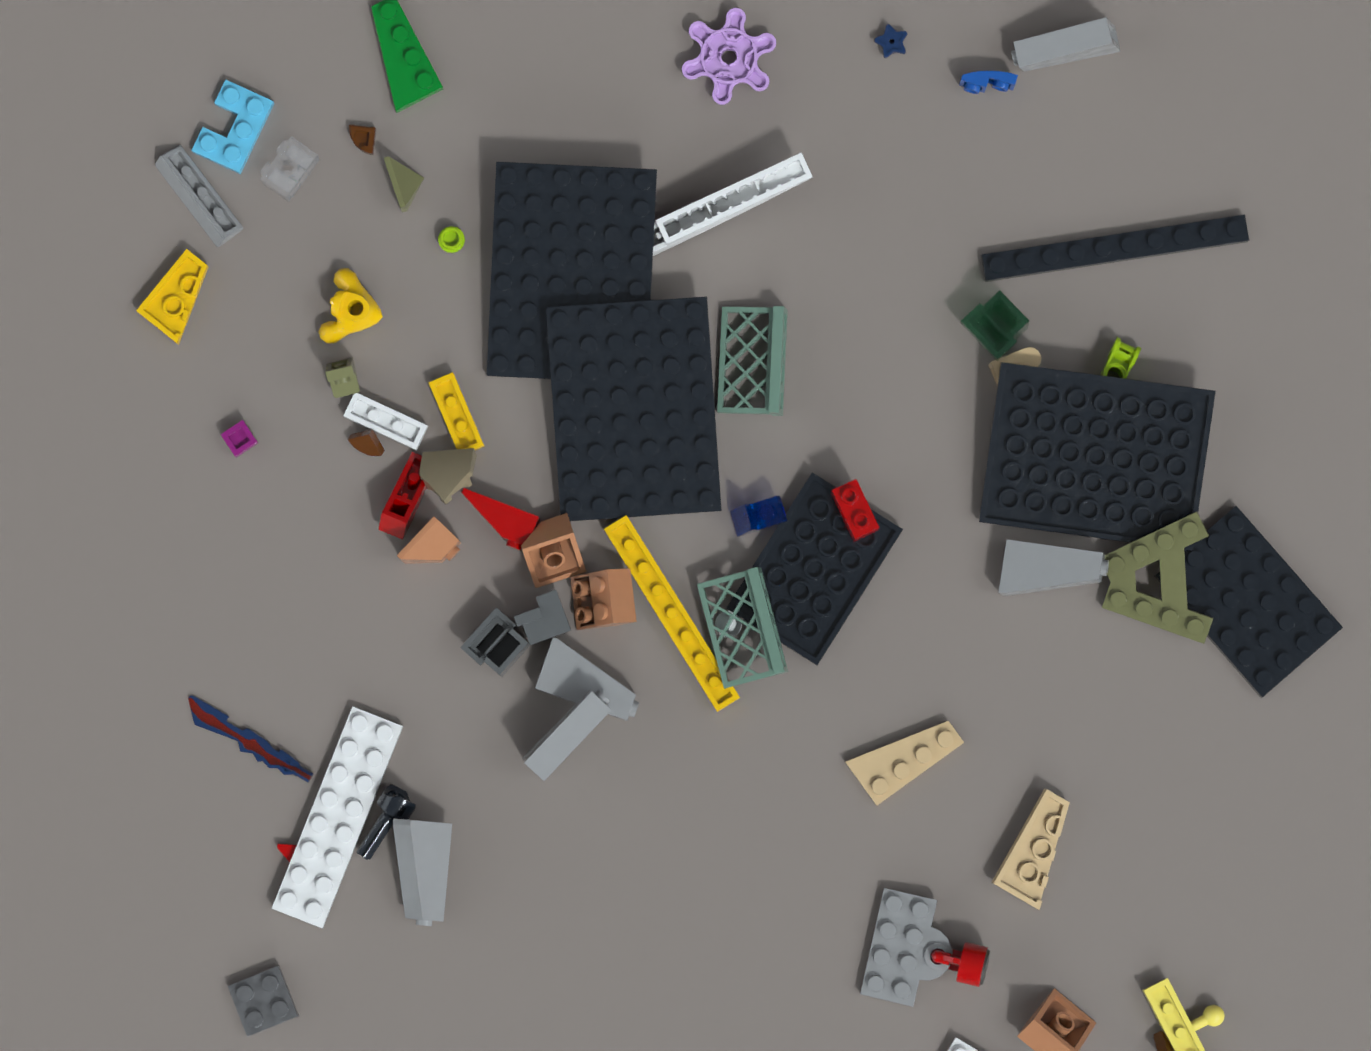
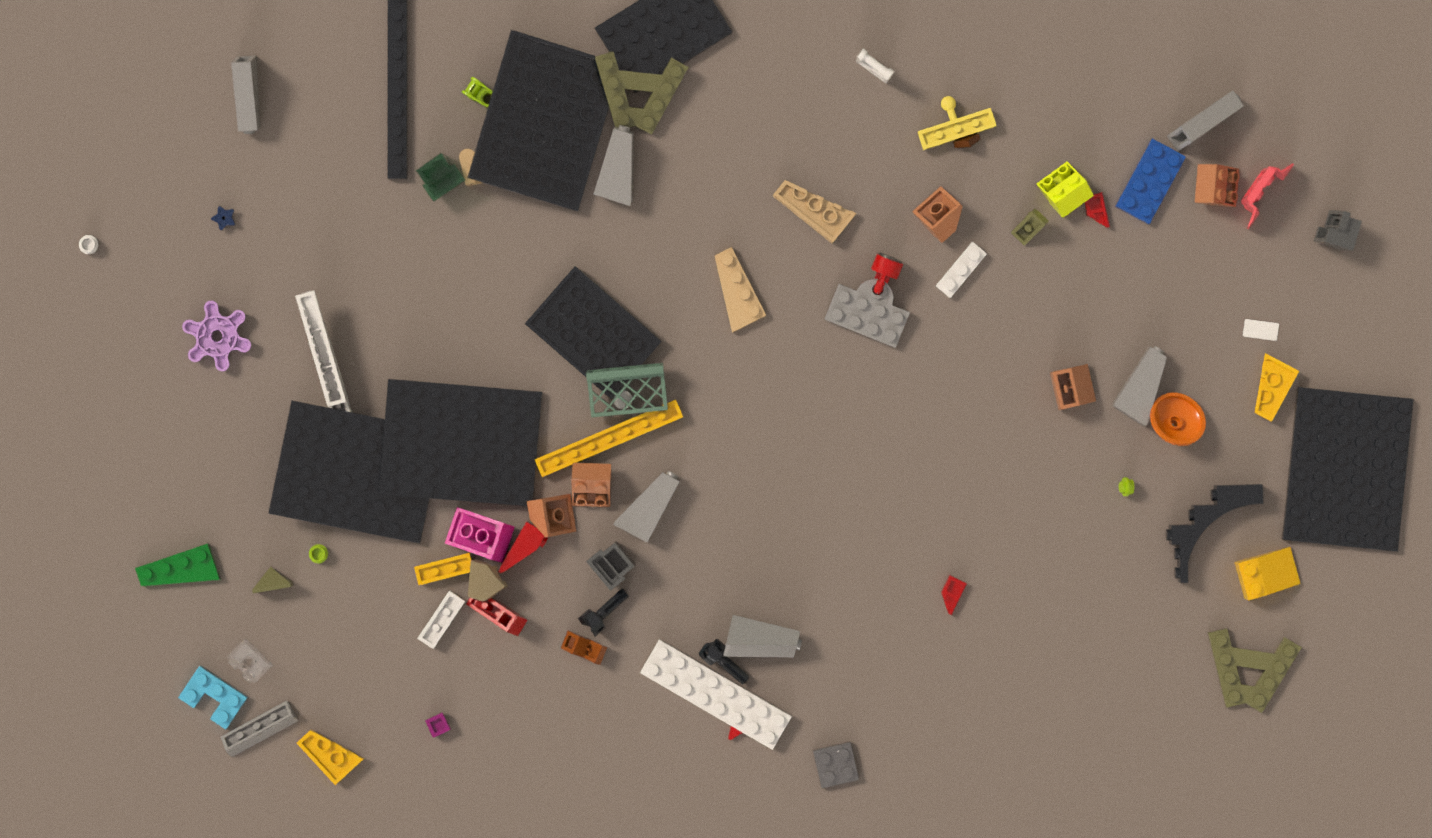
camera: 85 degrees left, 5 degrees up
(249, 742) = (653, 748): dark blue sword -> none
(342, 377) = (405, 645): olive slope -> none
(352, 308) = (357, 631): yellow head -> none
(363, 138) = (235, 605): reddish brown tile -> none
(366, 443) = (454, 635): reddish brown tile -> none
(376, 623) = (584, 647): none -> dark orange slope
(417, 632) = (595, 619): none -> black piece
(431, 545) = (534, 600): nougat slope -> none
(510, 456) = (479, 535): none -> dark pink slope
(546, 620) = (601, 528): dark grey plate -> none
(567, 734) = (683, 525): light grey slope -> none
(758, 515) = (549, 366): clear blue slope -> none
(775, 360) = (438, 336): sand green fence -> none
(854, 510) = (556, 298): red brick -> none
(977, 81) = (263, 161): blue slope -> none
(1248, 902) = (874, 66): none -> white plate

